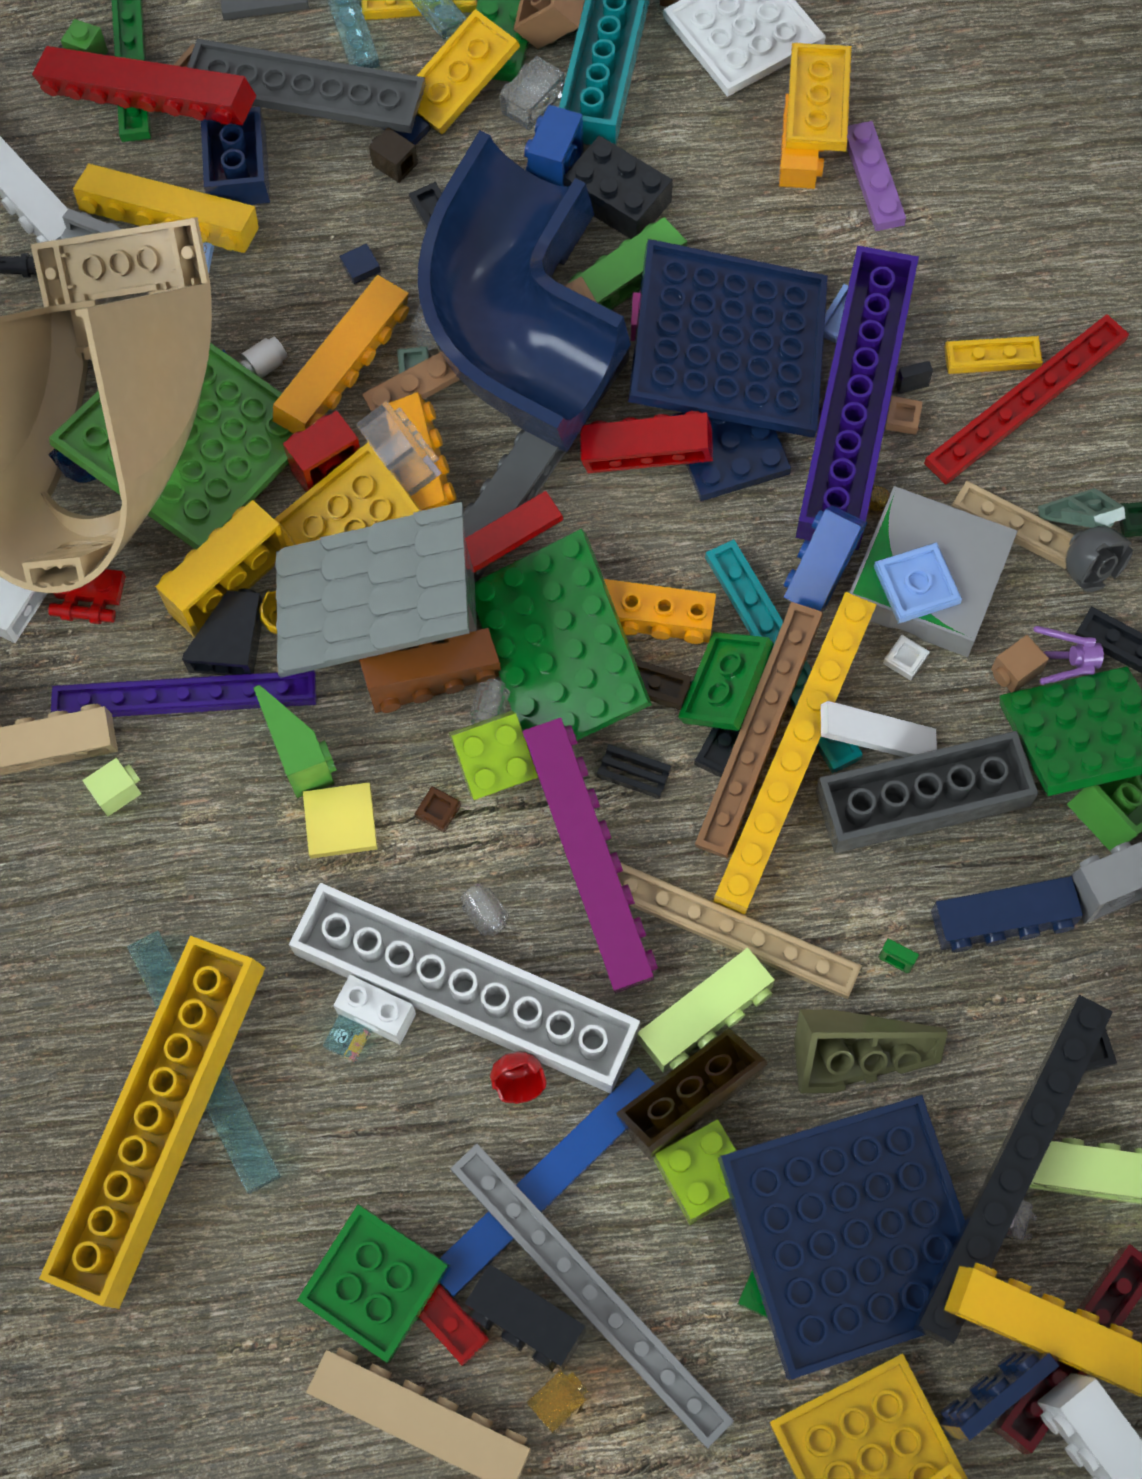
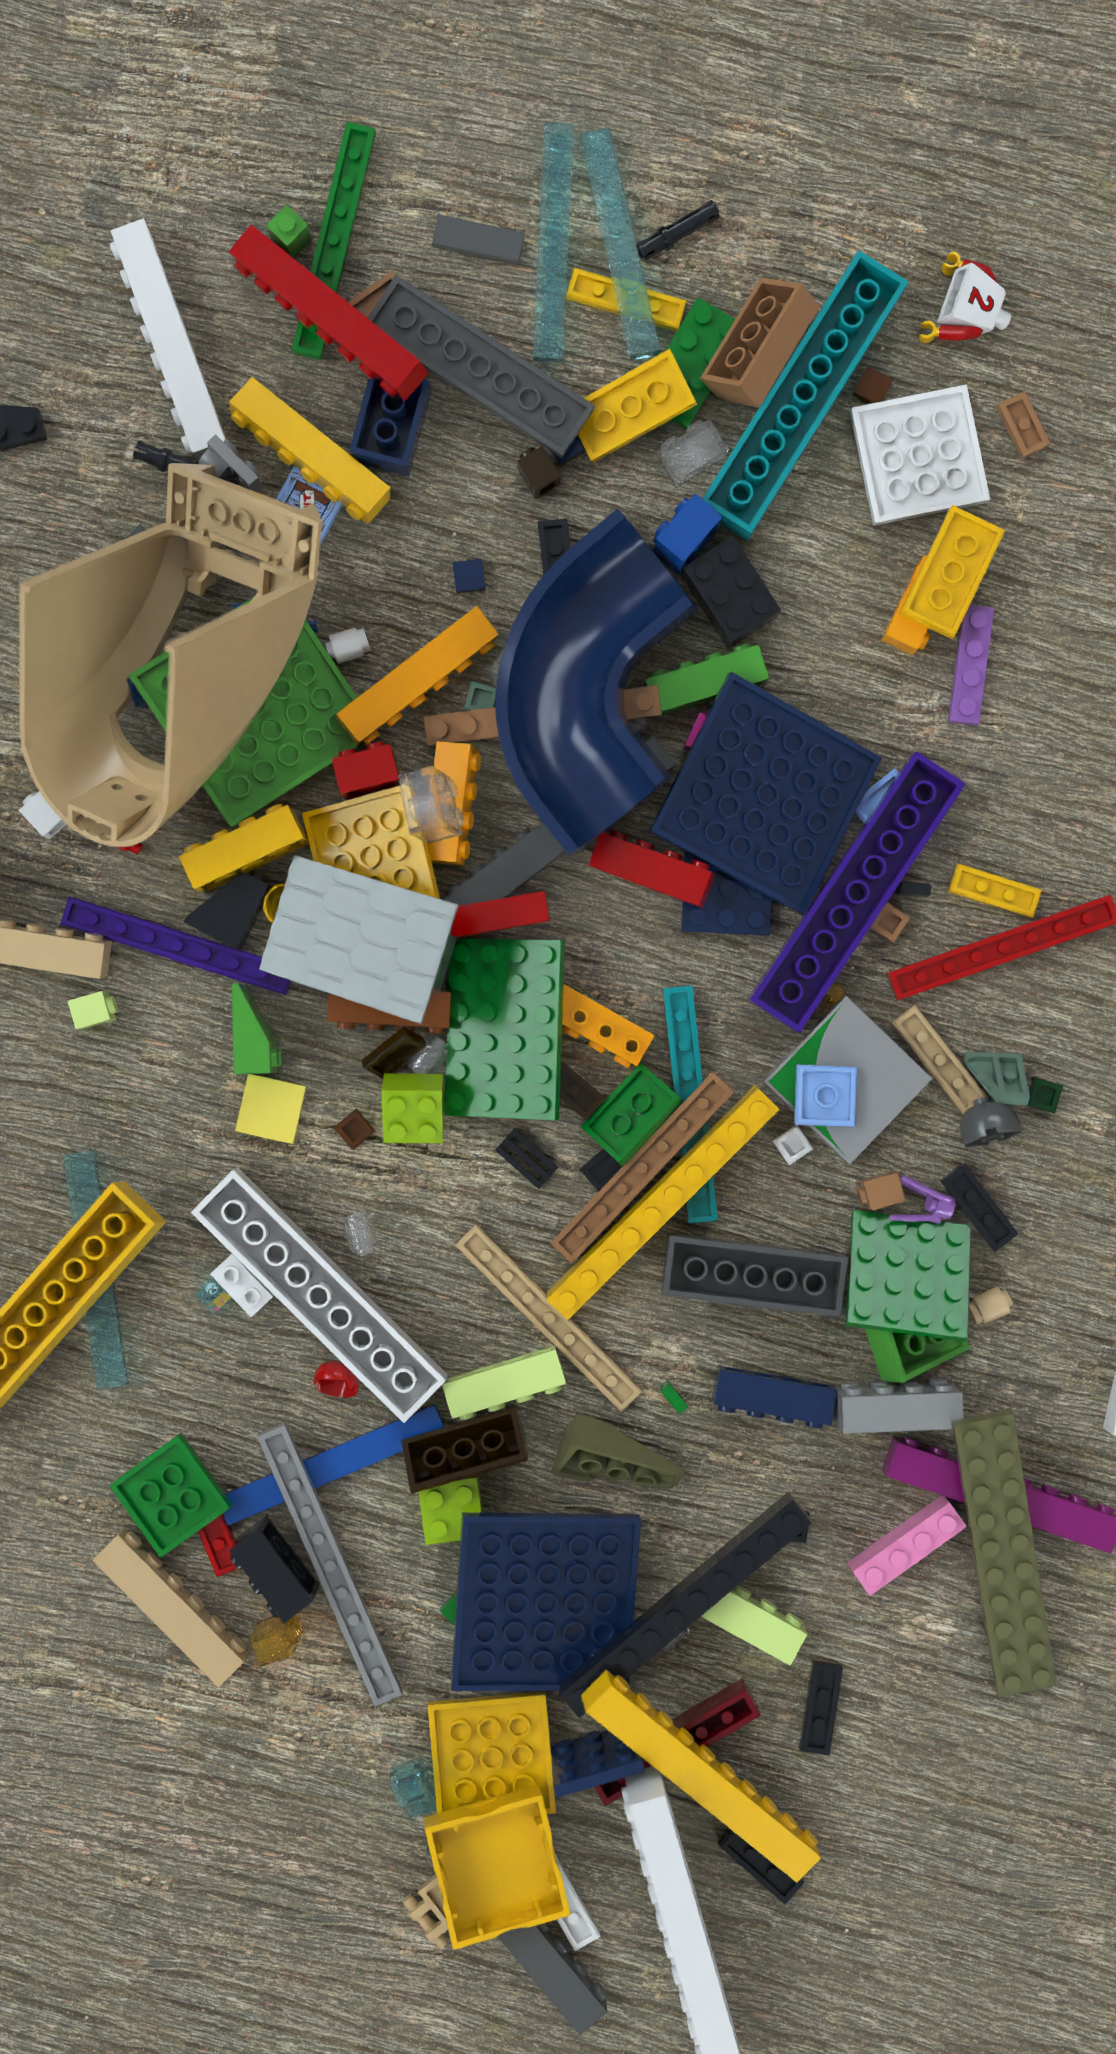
camera: 20 degrees right, 20 degrees up
(450, 709) = (393, 1052): none -> dark brown plate
(589, 856) = (459, 1224): magenta brick -> none
(824, 558) = (757, 1042): brick -> none
(875, 730) = (735, 1213): white tile -> none

